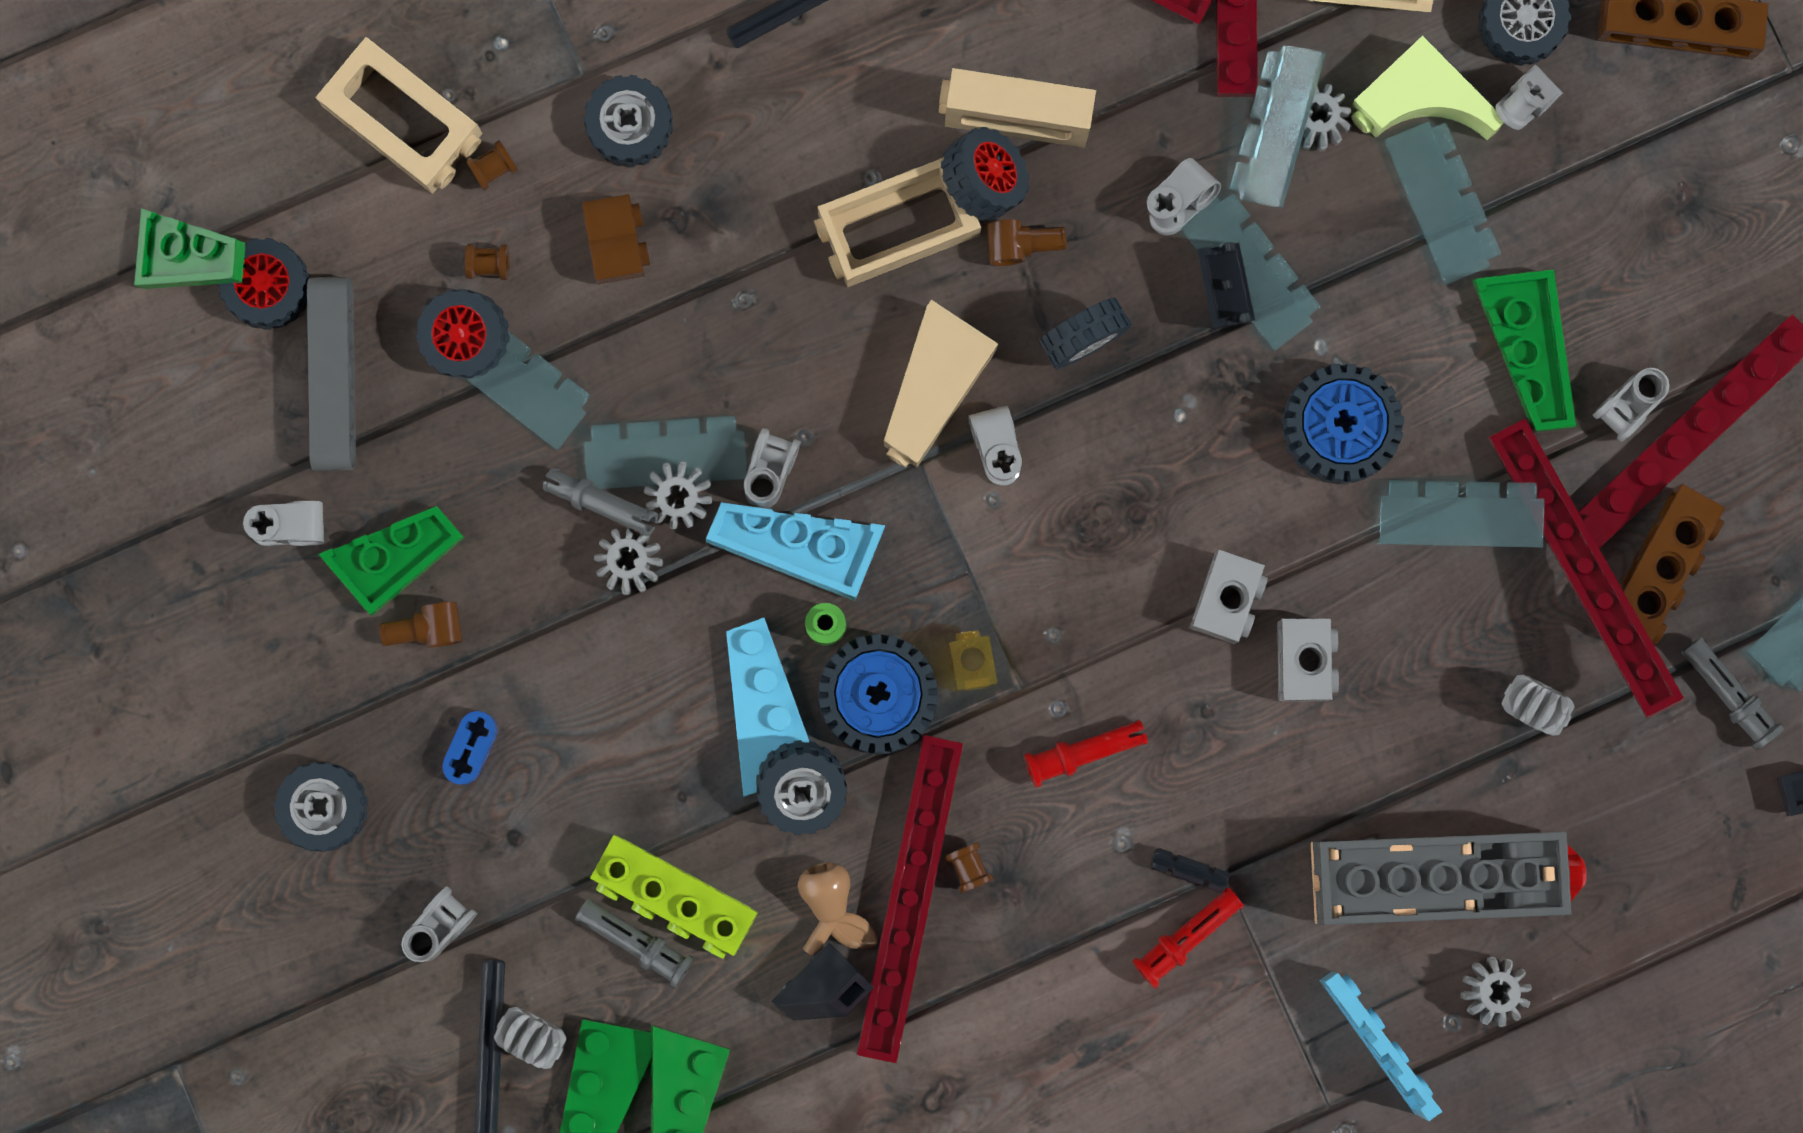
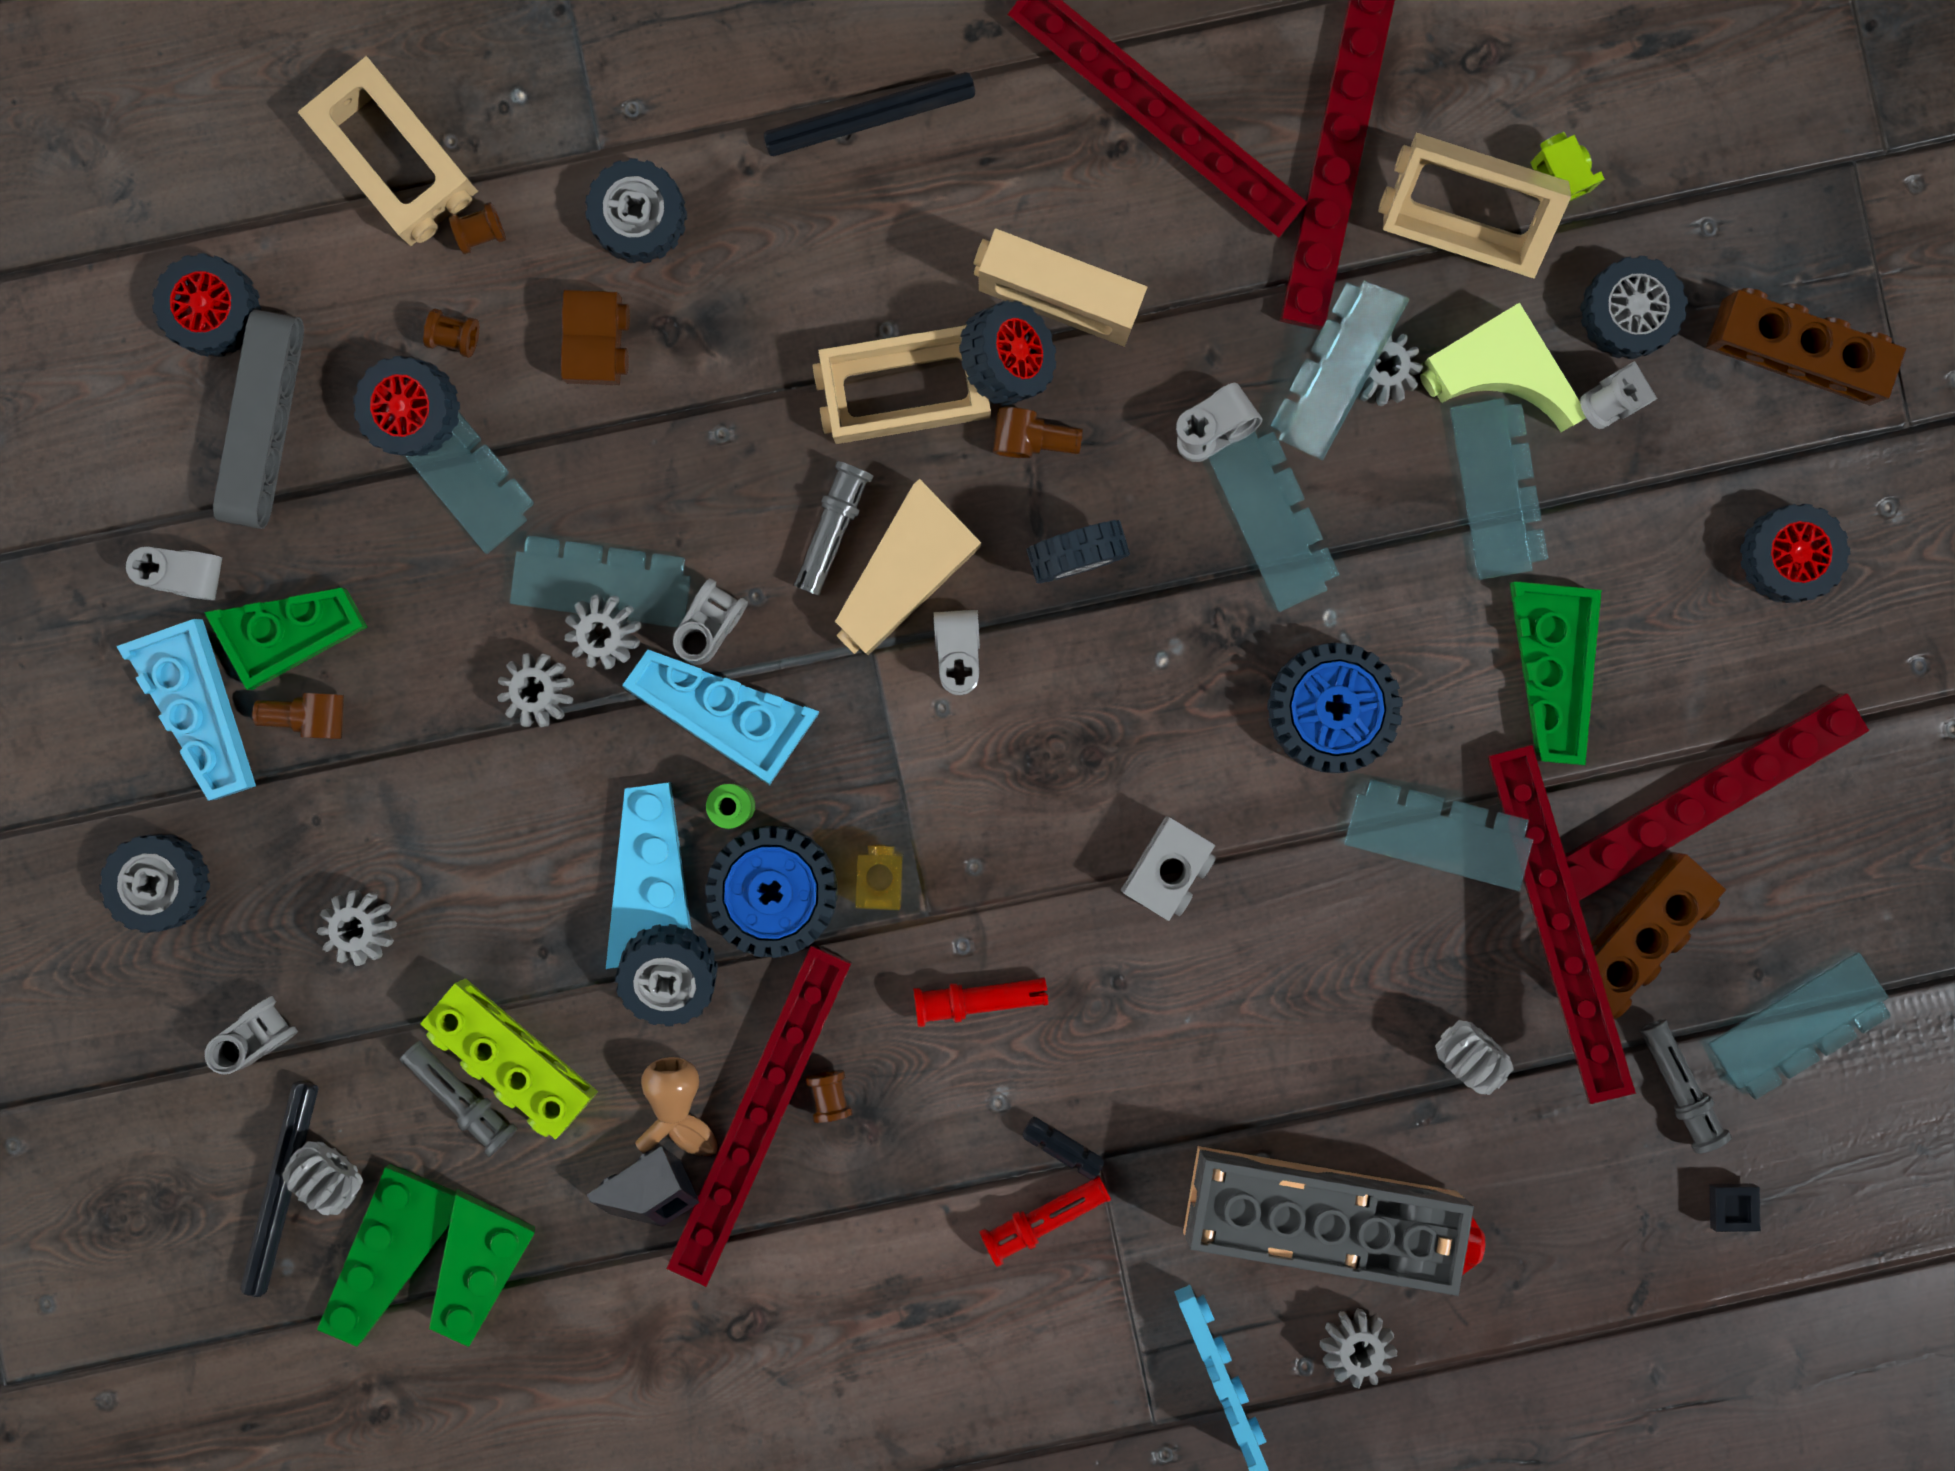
camera: 15 degrees right, 5 degrees up
(184, 255) = (123, 255): green wing -> none
(316, 629) = (189, 691): none -> medium azure wing
(461, 743) = (319, 847): blue beam -> none
(506, 794) = (342, 934): none -> light grey gear
(585, 495) = (504, 611): dark grey pin -> none
(863, 343) = (839, 508): none -> dark grey pin
(1226, 285) = (1242, 531): black hinge -> none
(1295, 682) = (1227, 929): light grey brick -> none
(1628, 407) = (1644, 756): light grey piece -> none
(1716, 201) = (1795, 553): none -> black wheel

